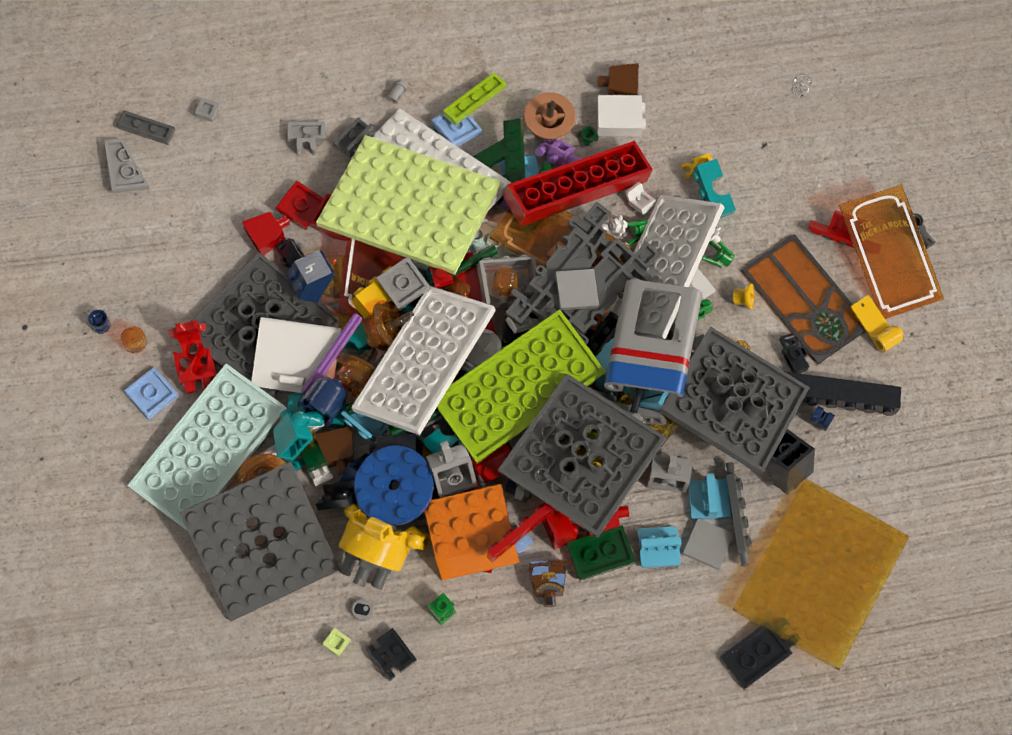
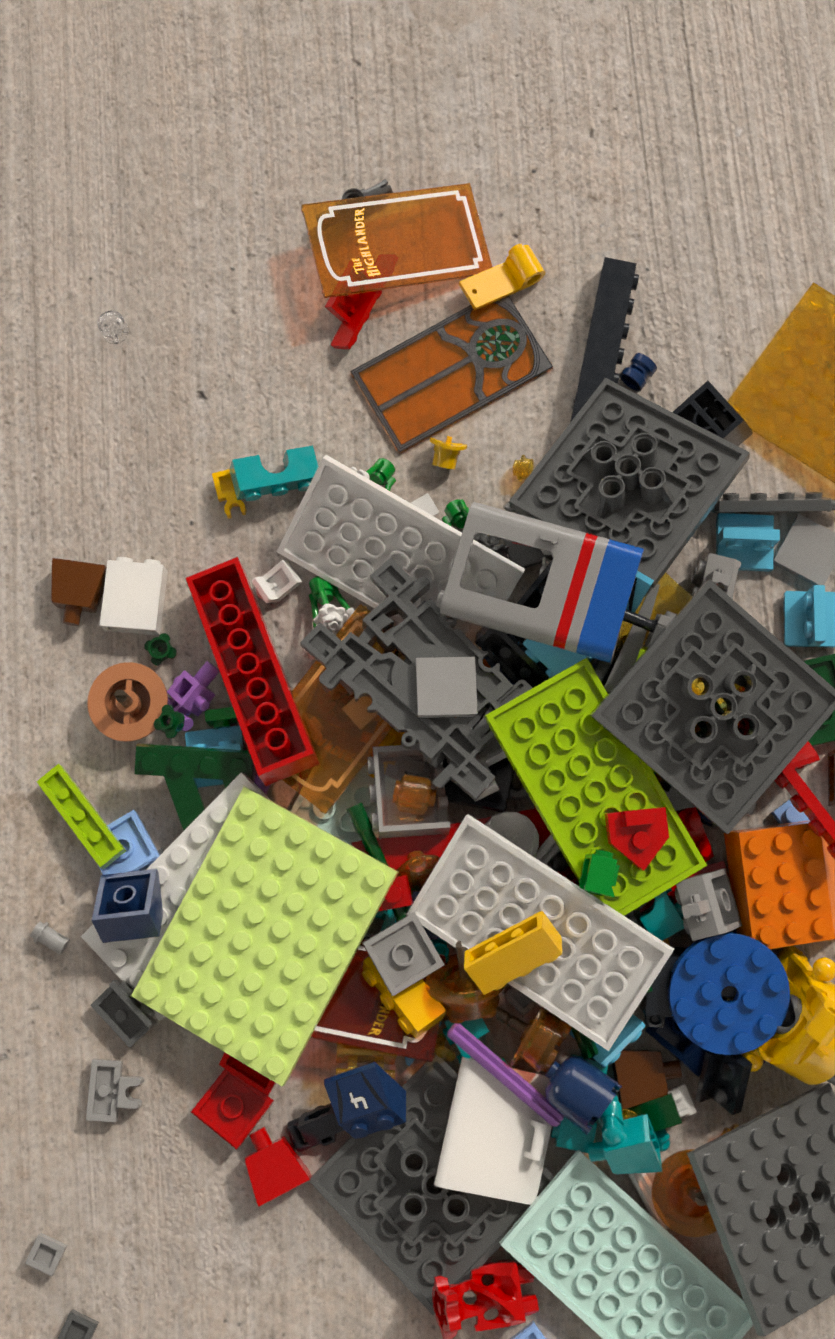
camera: 80 degrees left, 10 degrees up
(408, 340) = (513, 953): none -> yellow brick
(420, 127) = (128, 906): none -> dark blue slope
(463, 386) = (599, 873): none -> green window
(492, 412) = (638, 834): none -> red plate
(539, 140) = (176, 721): none -> dark green plate
(794, 354) = (538, 396): black piece -> none

